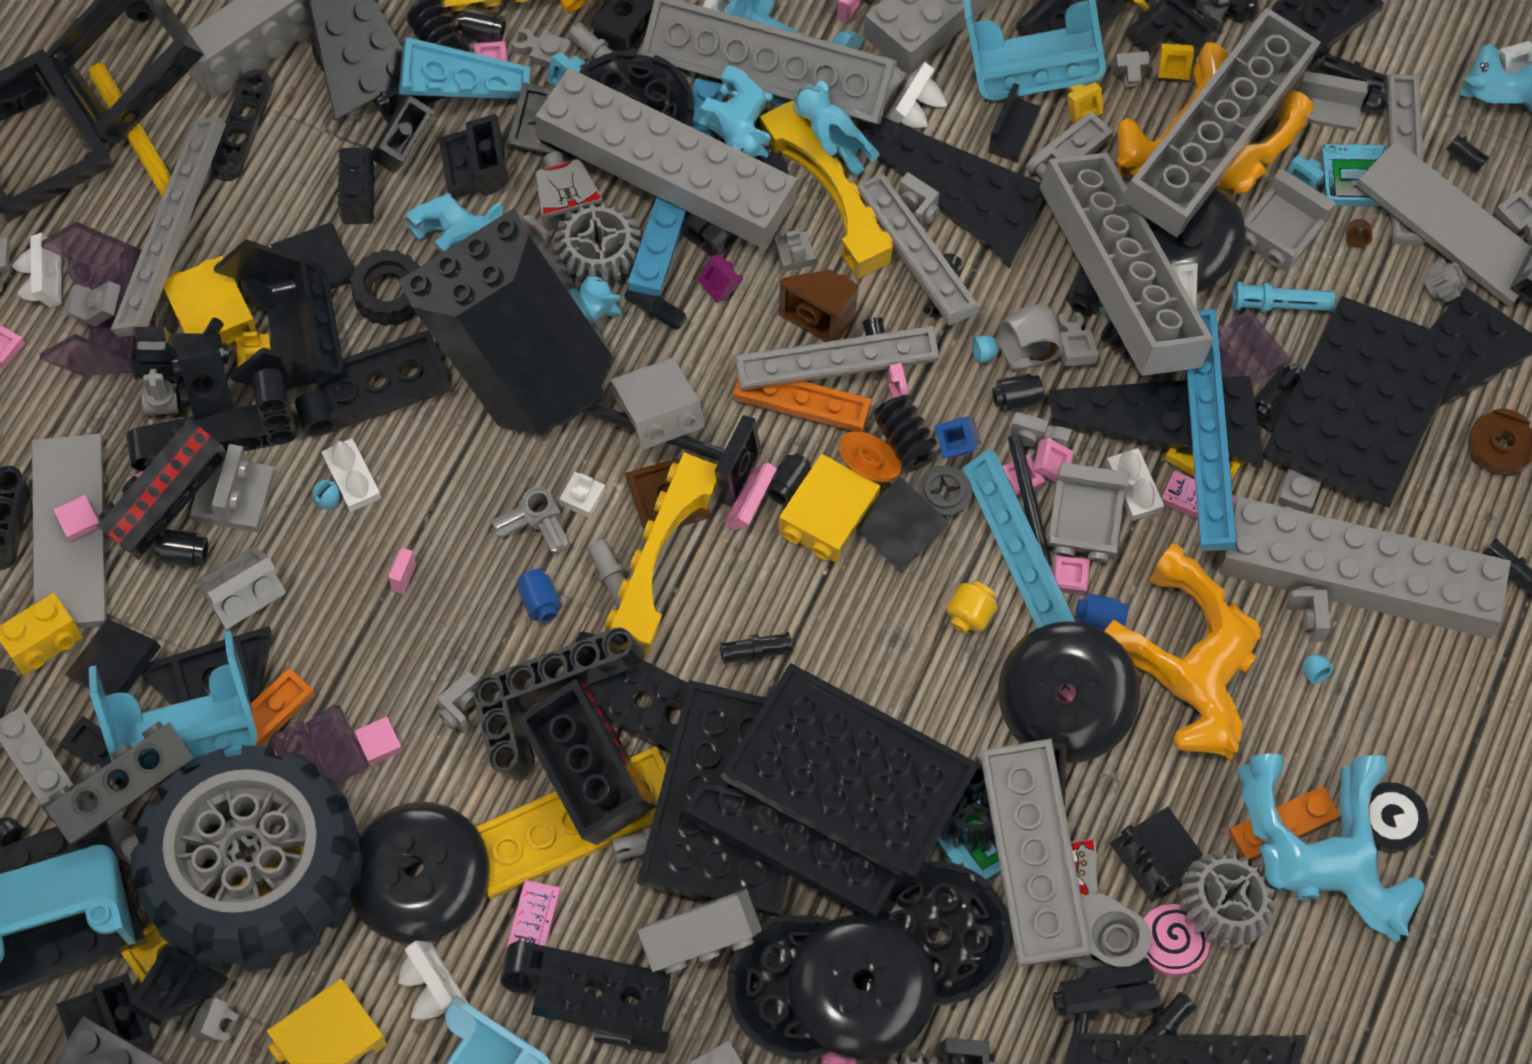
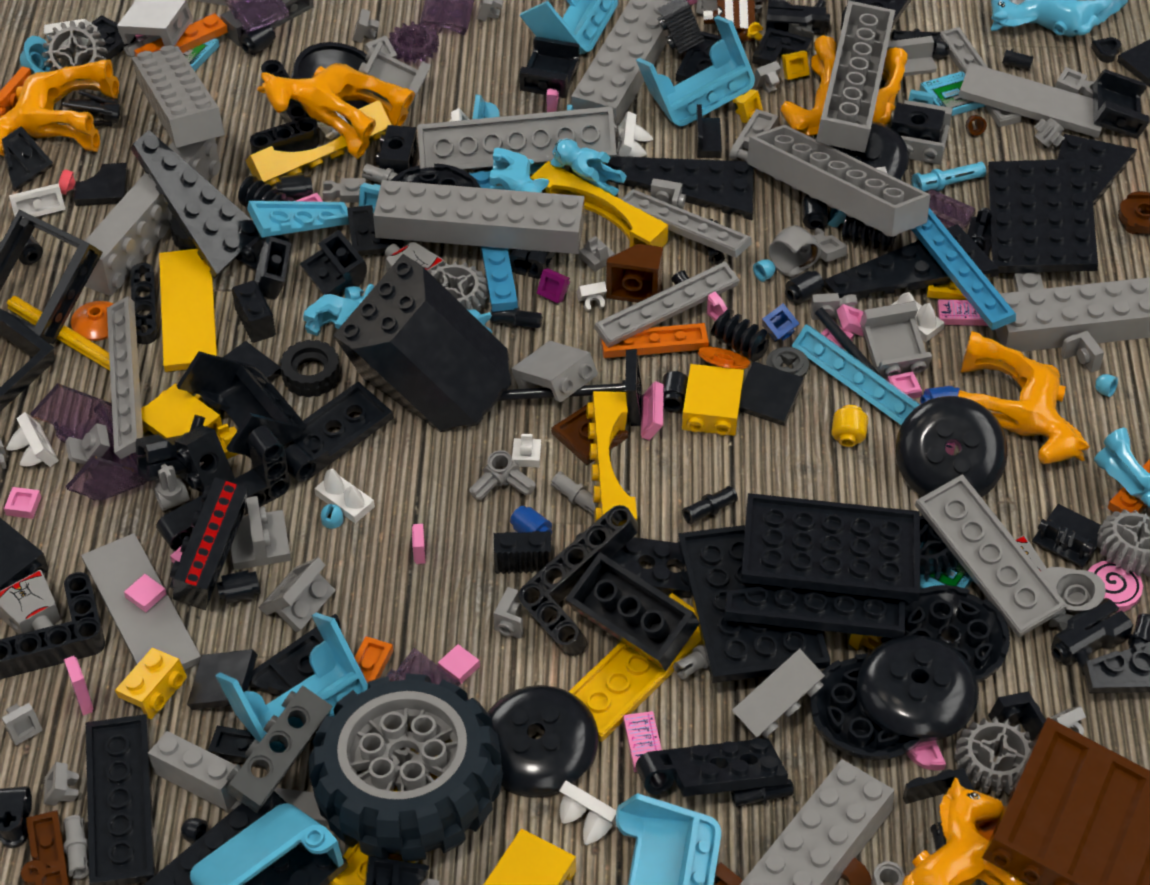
camera: 20 degrees left, 15 degrees down
(168, 135) = (91, 320): none -> orange dish
(284, 155) = (186, 308): none -> yellow tile
(480, 204) = (353, 292): none -> medium azure hinge
(511, 627) = (522, 551): none -> black brick
(760, 306) = (592, 292): none -> white tile
(1272, 196) = (918, 122): none -> black brick

